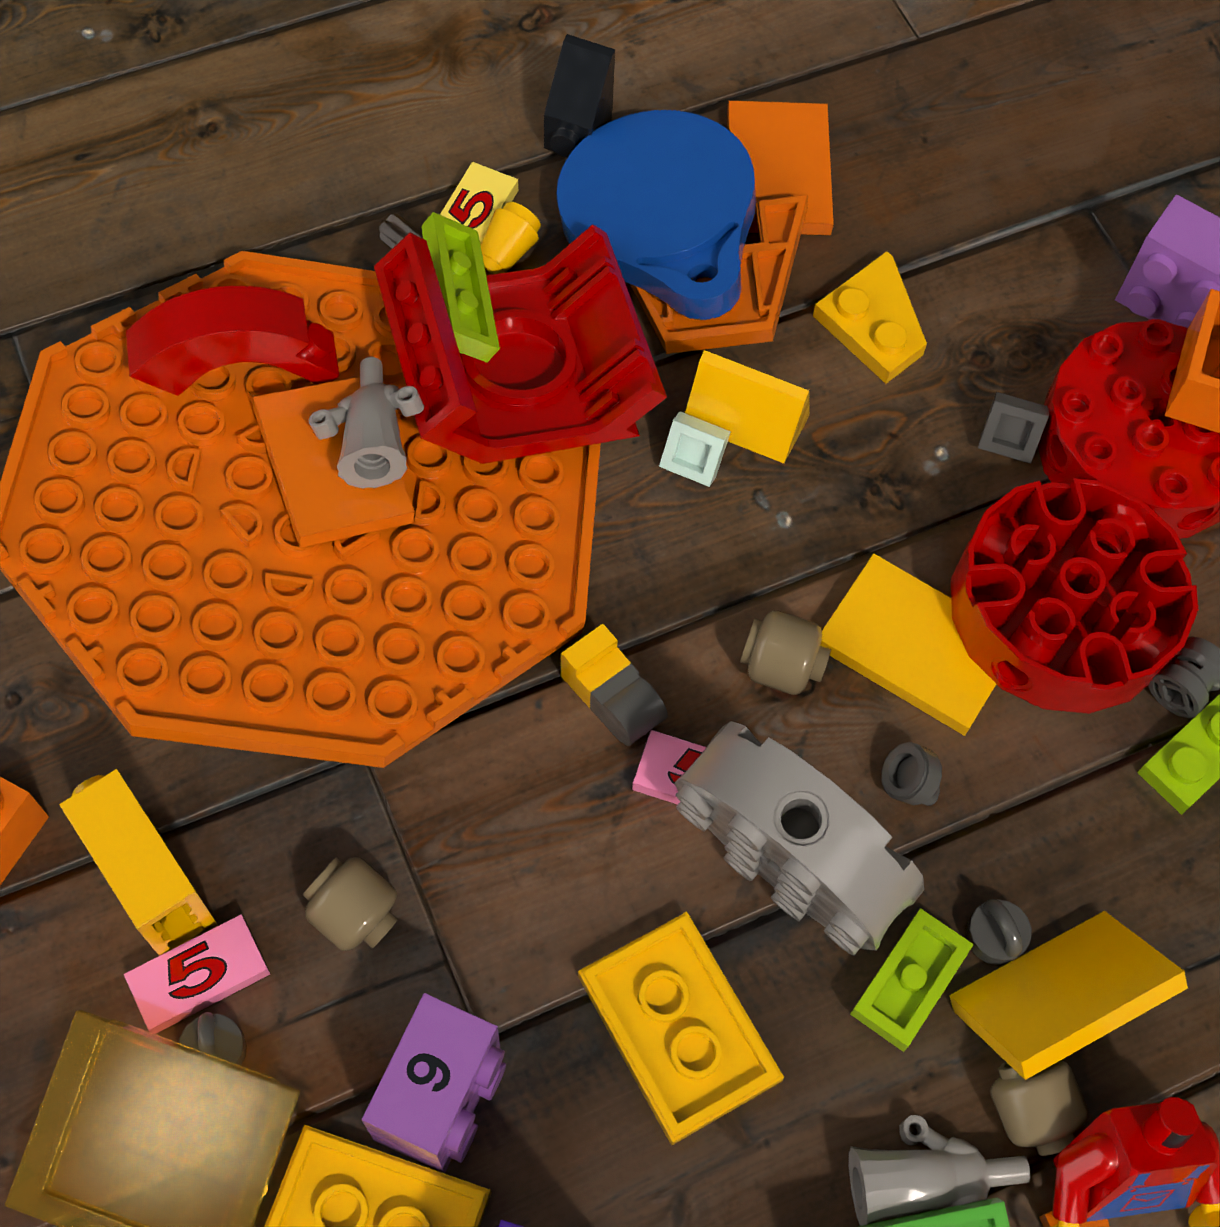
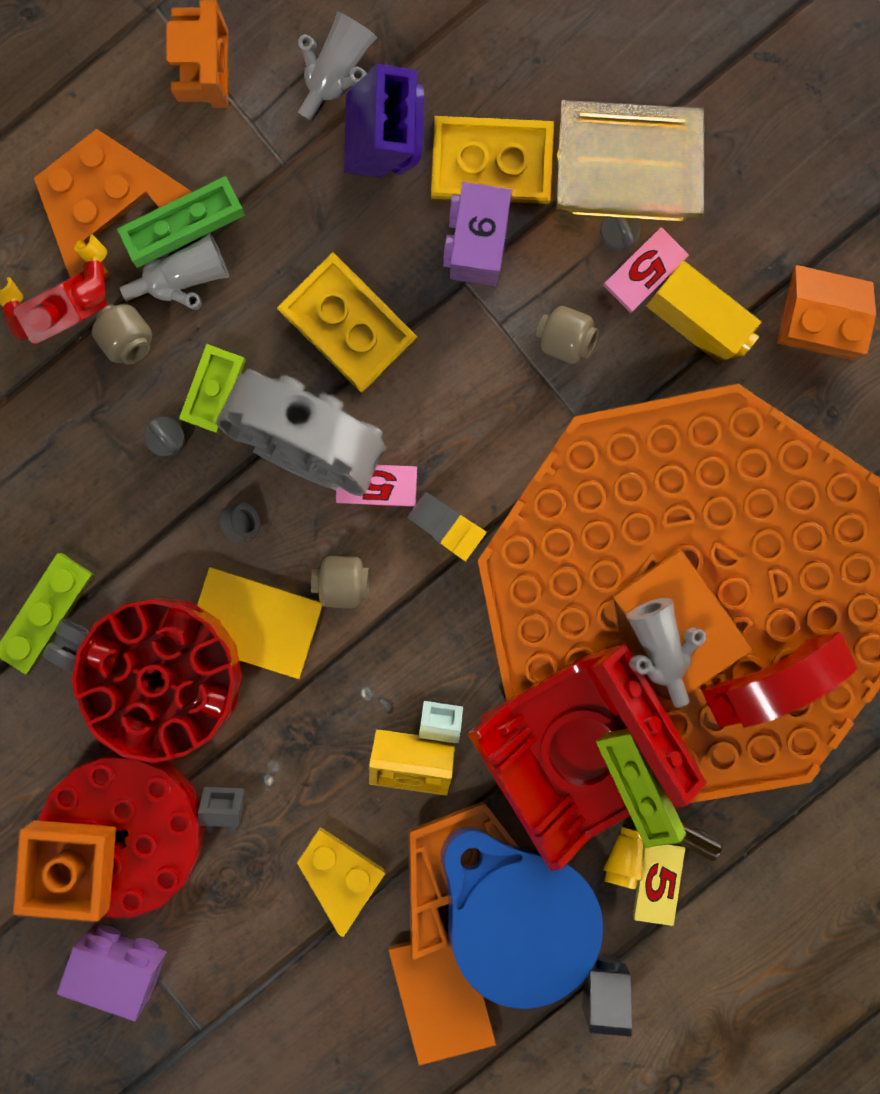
camera: 170 degrees right, 25 degrees up
(1067, 993) = (115, 401): yellow tile -> none

